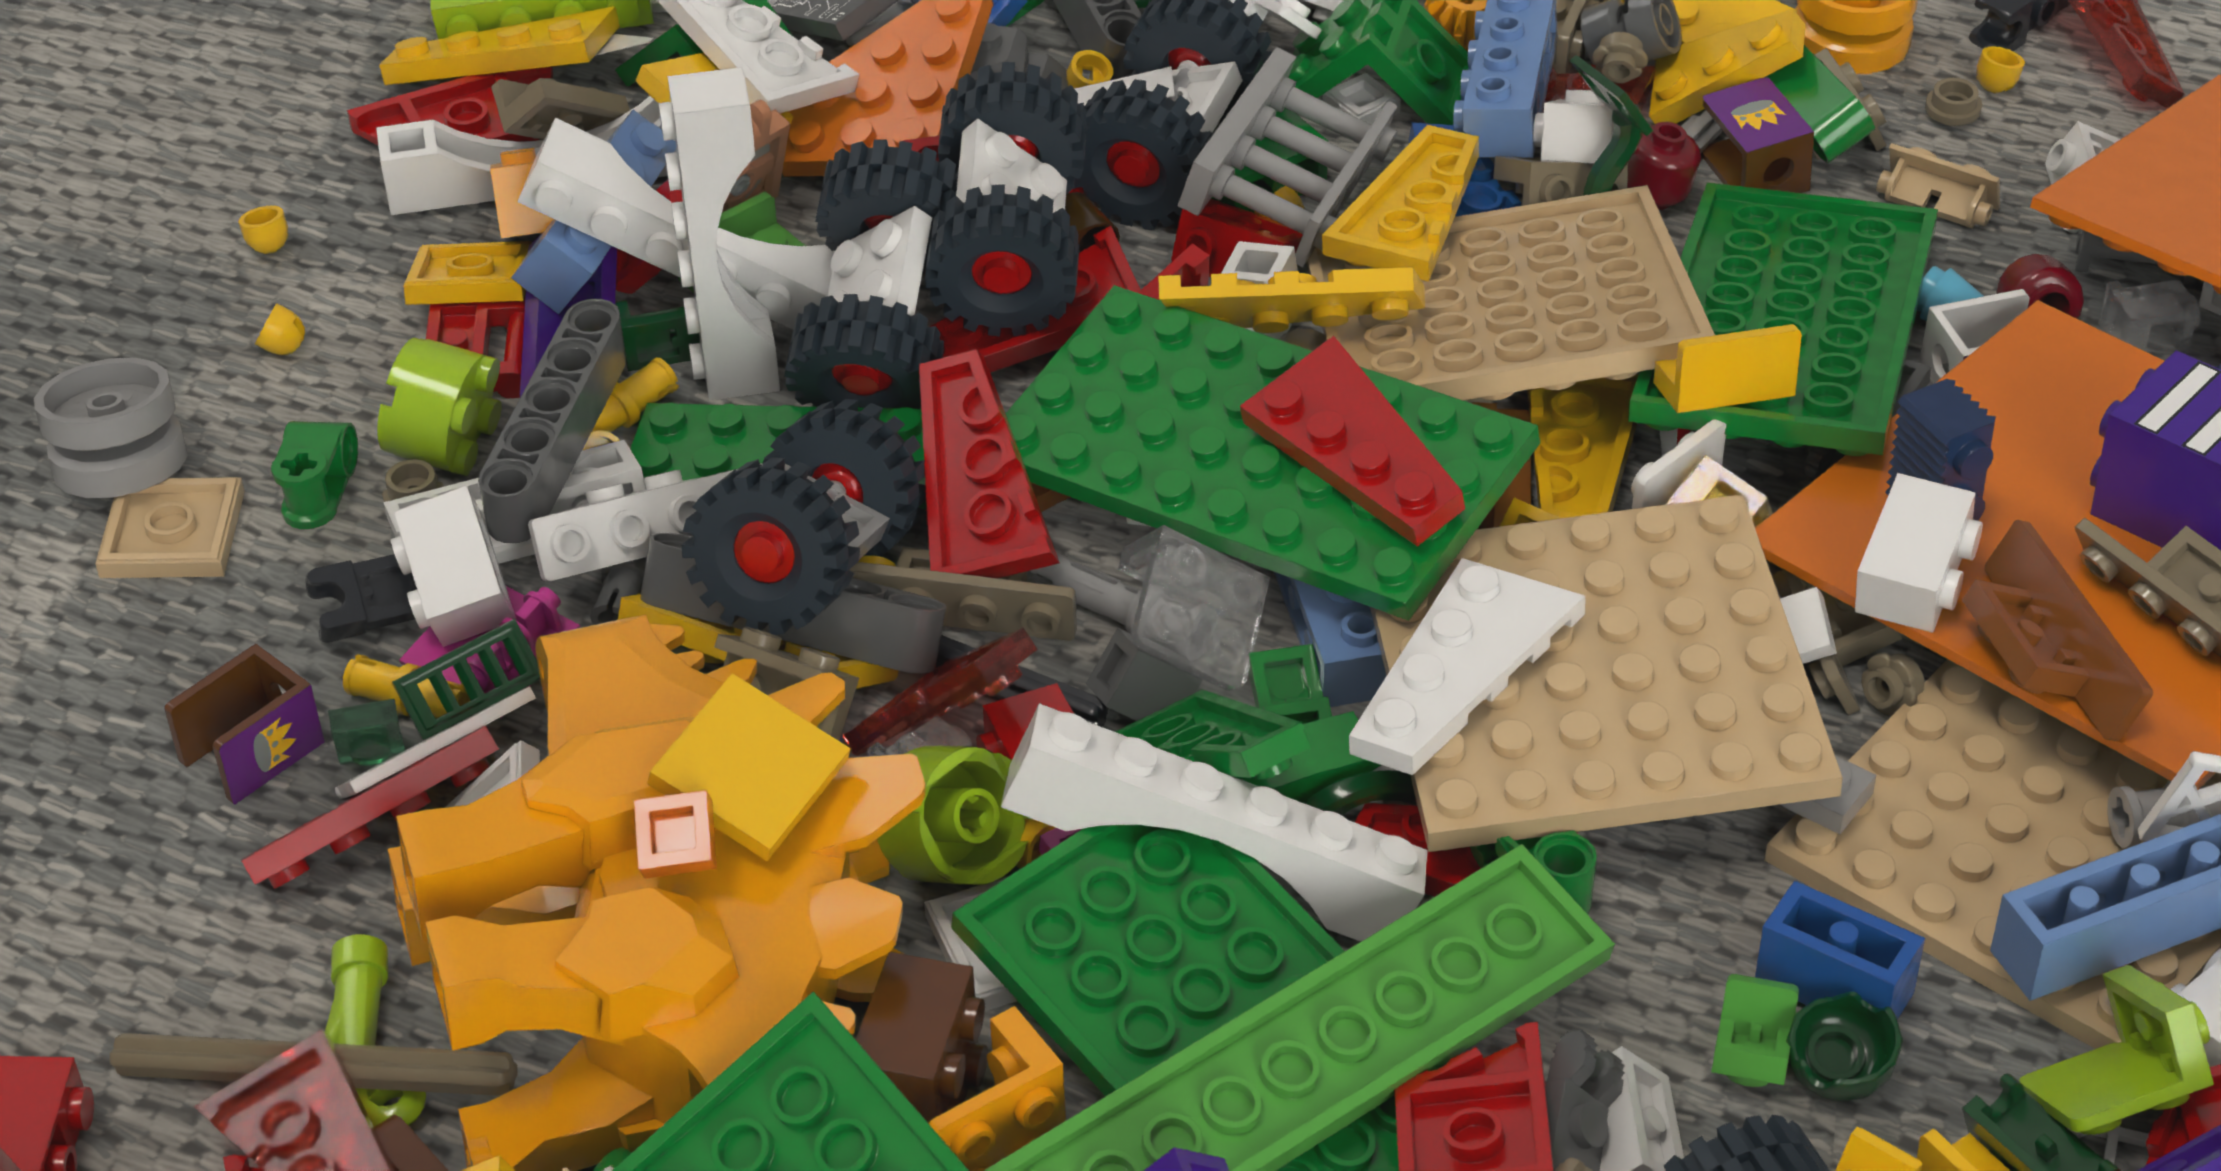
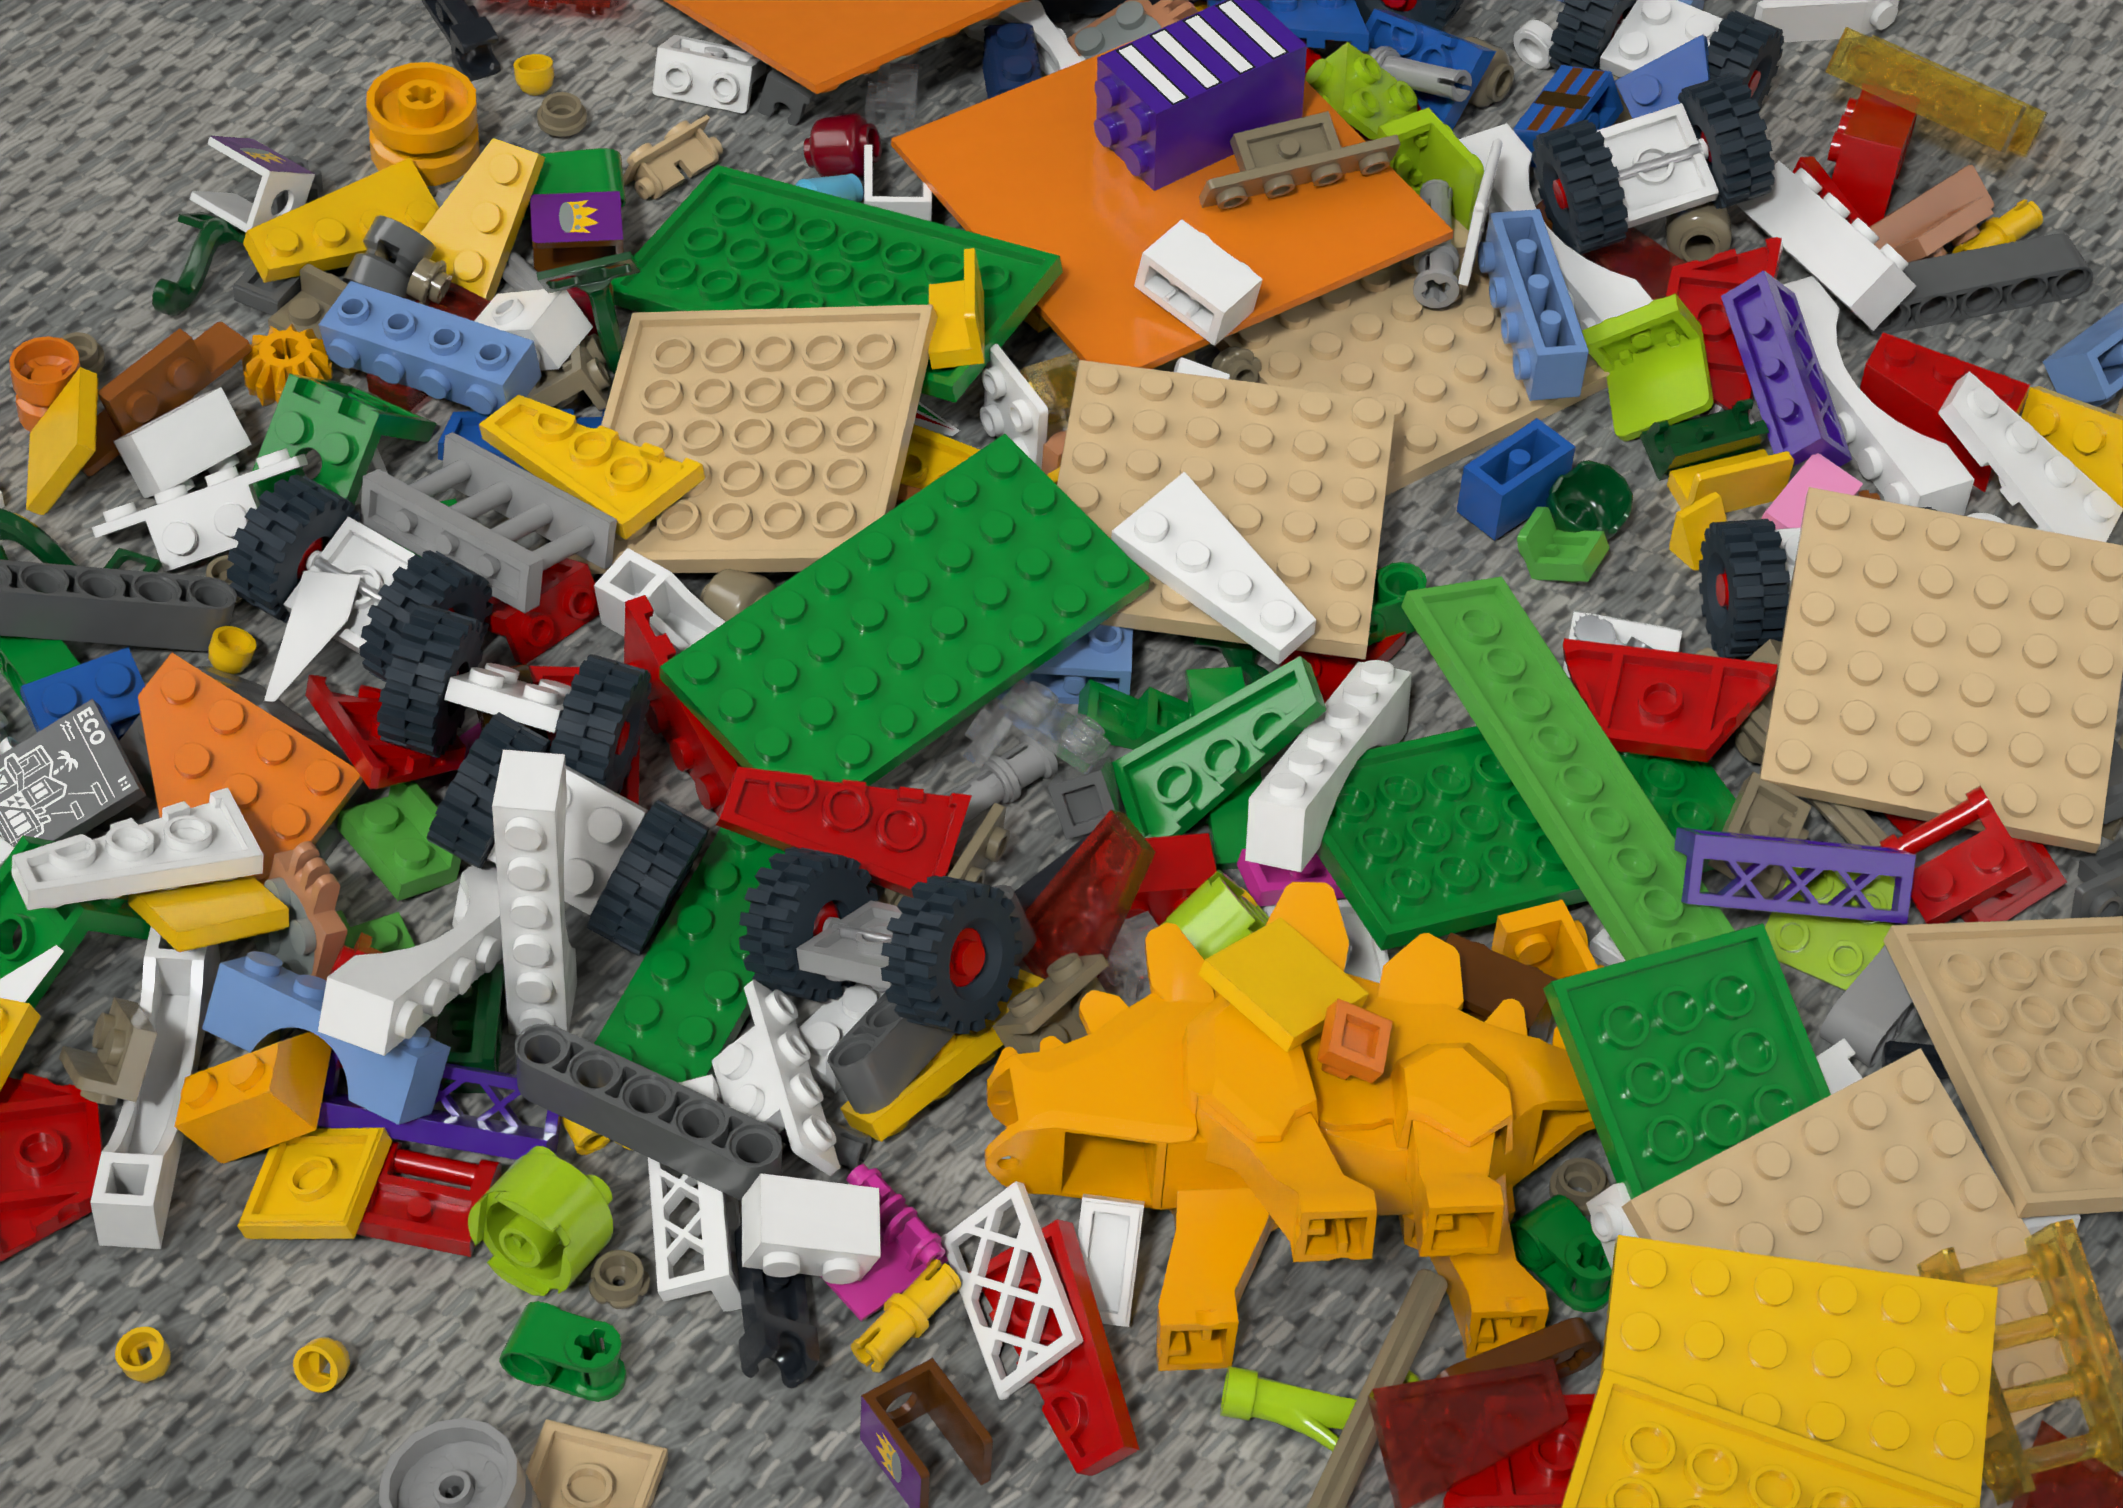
camera: 80 degrees left, 5 degrees up
(367, 732) = (965, 1347): clear green plate -> none
(519, 653) = (954, 1237): dark green slope -> none
(1300, 298) = (723, 564): yellow wing -> none
(1355, 440) = (967, 549): red wing -> none
(1943, 439) = (1116, 227): dark blue brick -> none
(2054, 634) = (1305, 240): dark orange bracket -> none

